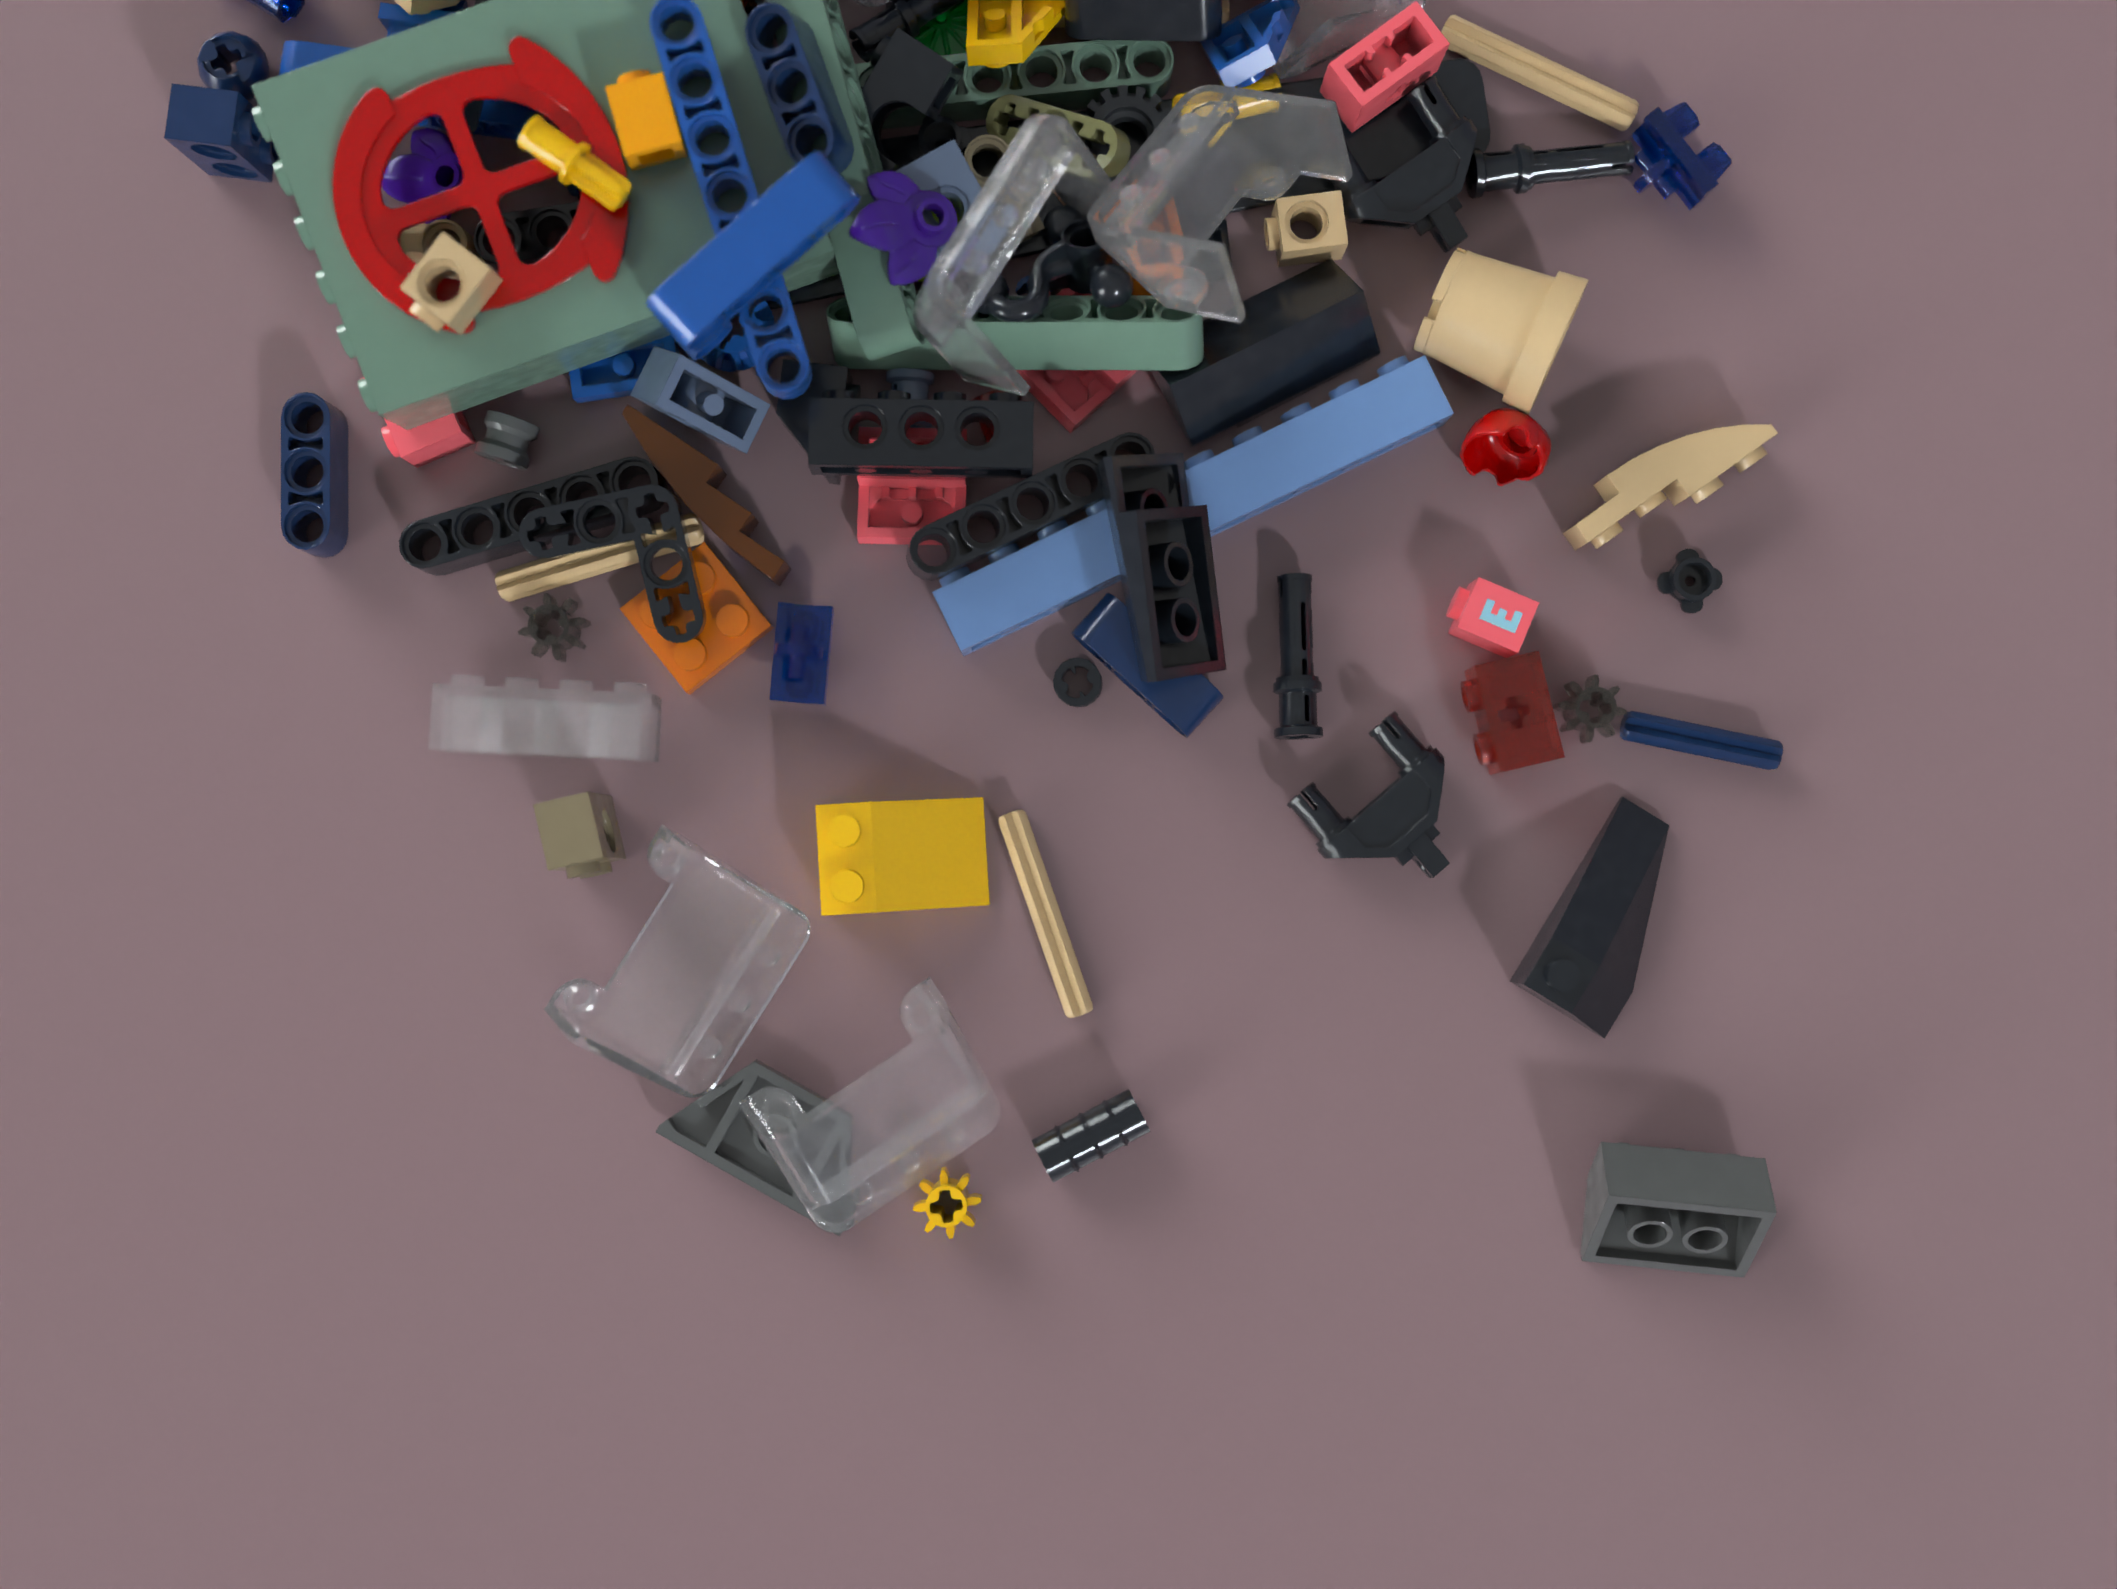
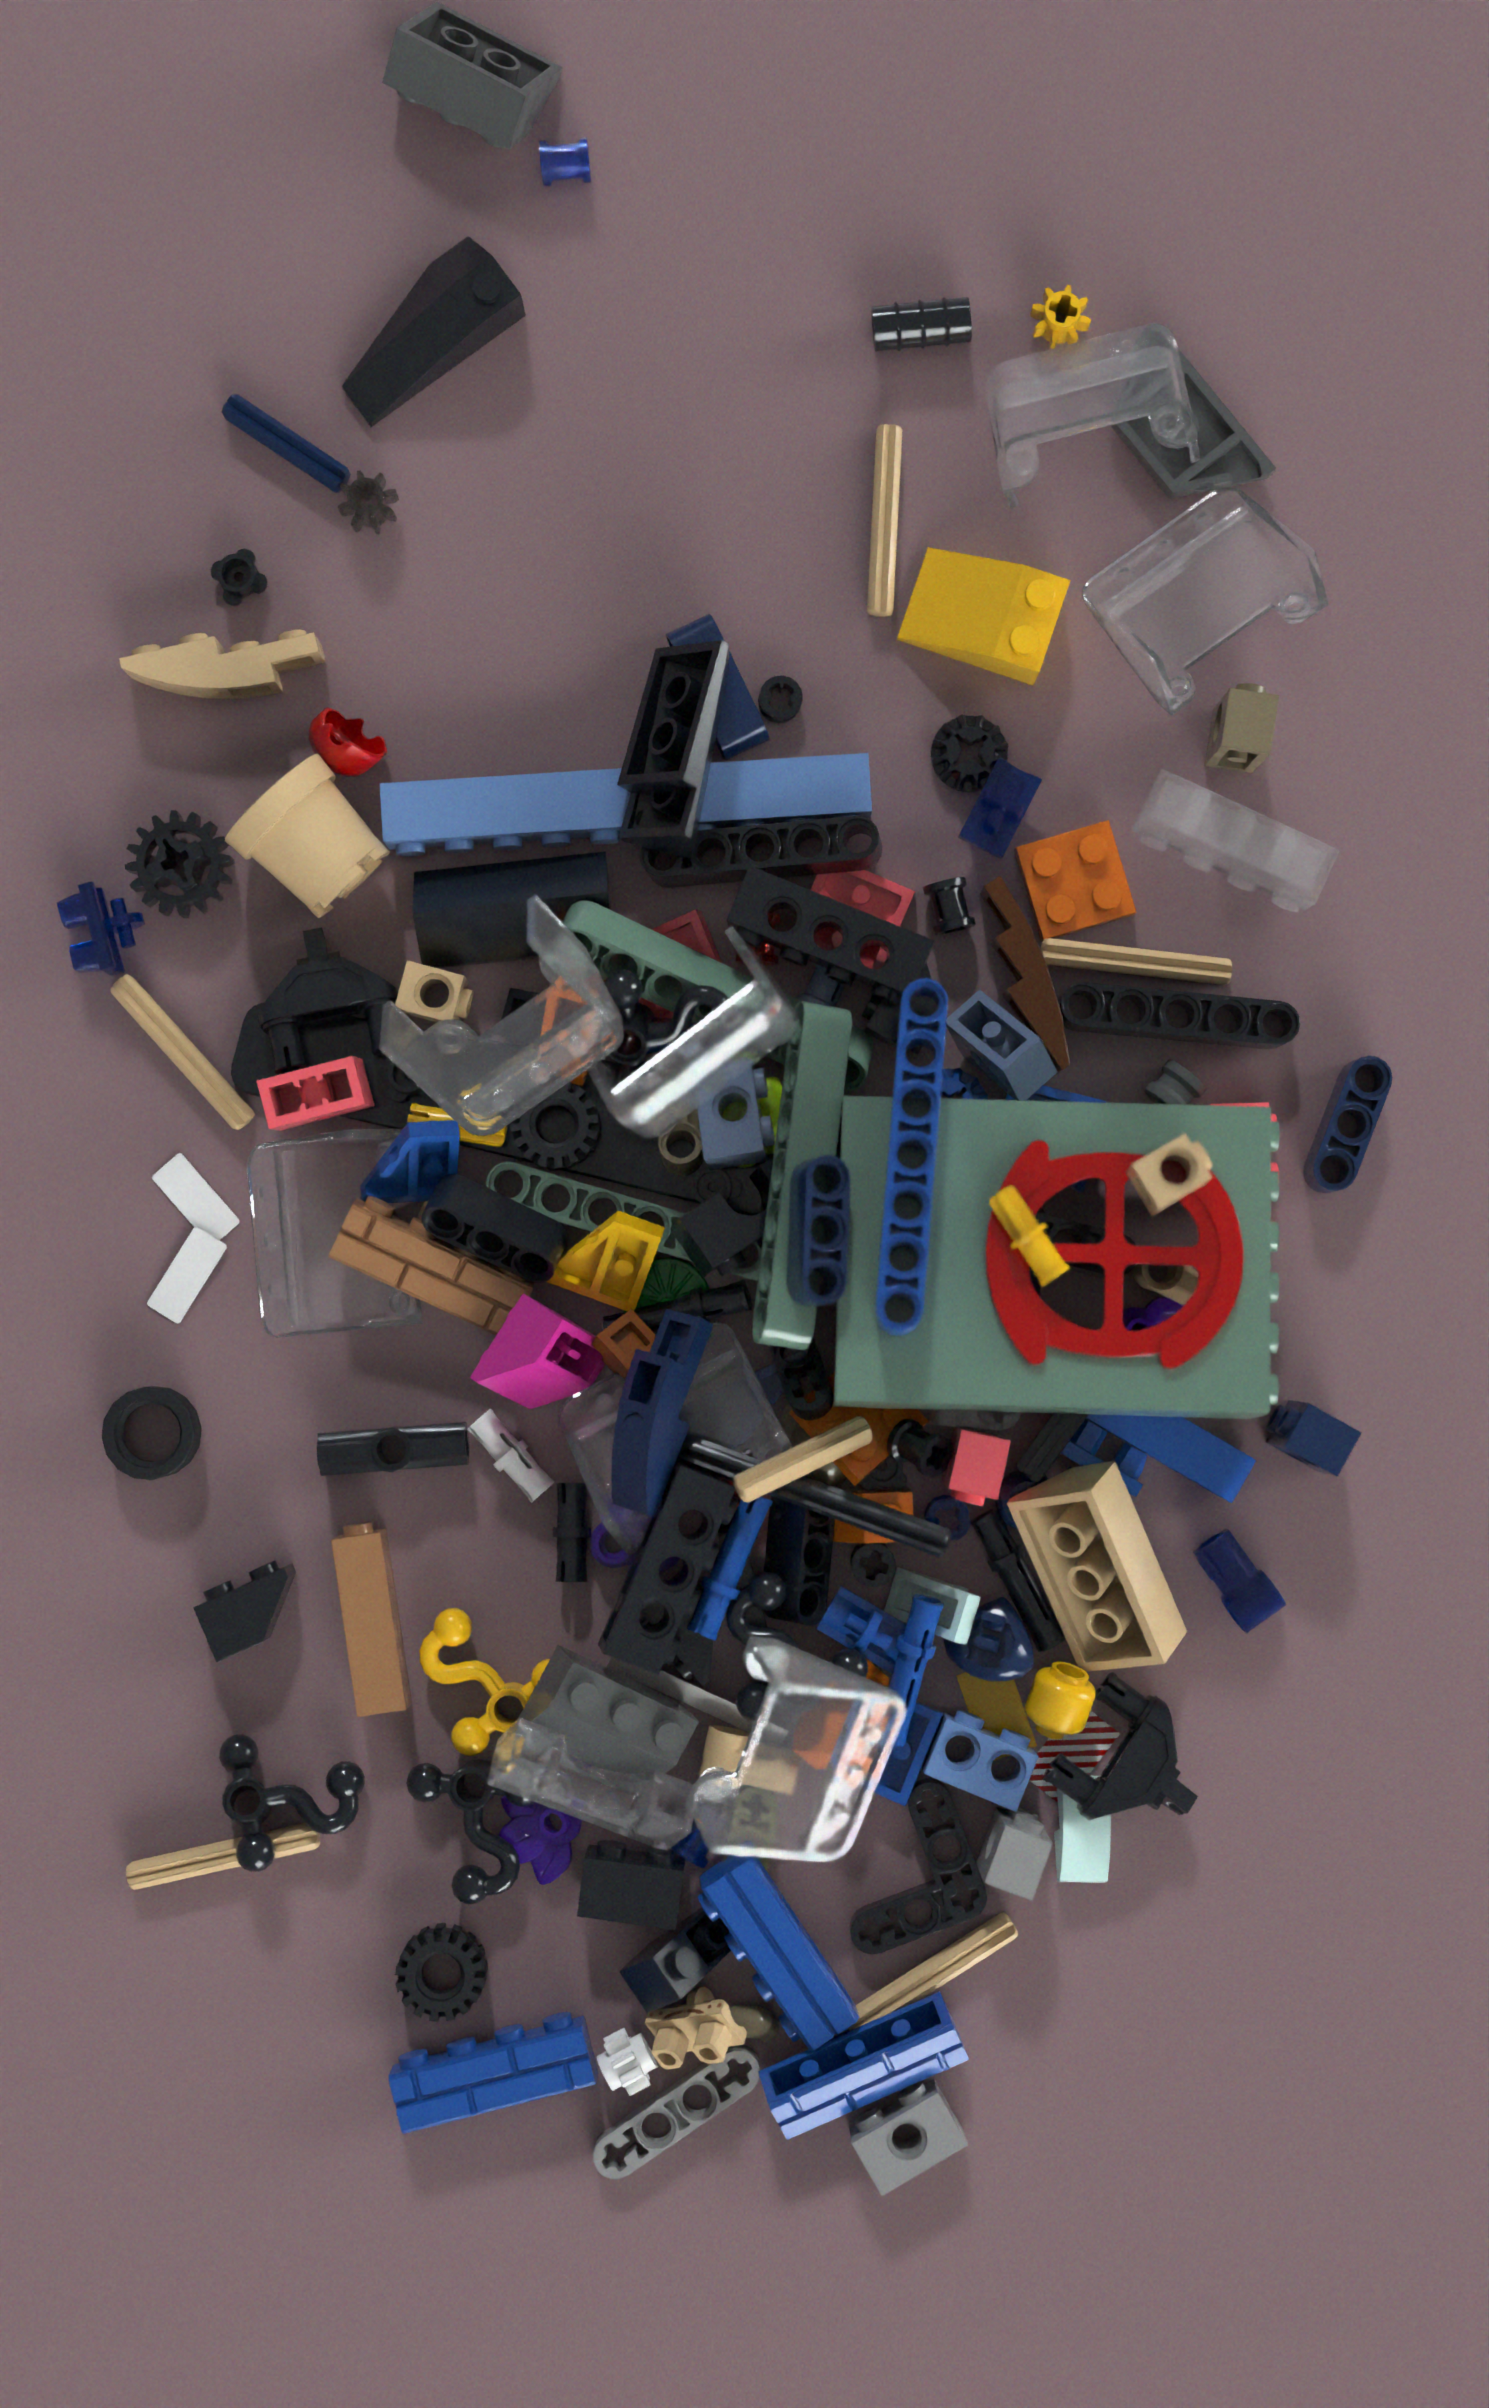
camera: 160 degrees left, 0 degrees up
(222, 50) = (1295, 1516): dark blue piece -> none
(542, 635) = (1195, 903): clear smoke gear -> none
(629, 527) = (1100, 960): black beam -> none
(645, 119) = (955, 1249): light orange brick -> none
(751, 254) = (961, 1073): blue beam -> none
(815, 535) = (949, 905): none -> black bush
(866, 730) = (946, 750): none -> black gear
(898, 227) = (781, 1094): dark purple plate -> none
(1086, 128) = (593, 1137): olive beam -> none
(1297, 683) = (599, 623): black pin -> none
(1395, 821) = (567, 477): black connector -> none
(1491, 617) = (417, 610): coral brick -> none
(1512, 684) = (428, 496): clear red brick -> none
(1523, 168) = (229, 973): black pin -> none
(1537, 1156) = (564, 161): none -> clear blue bush
(1642, 272) = (161, 872): none -> black gear

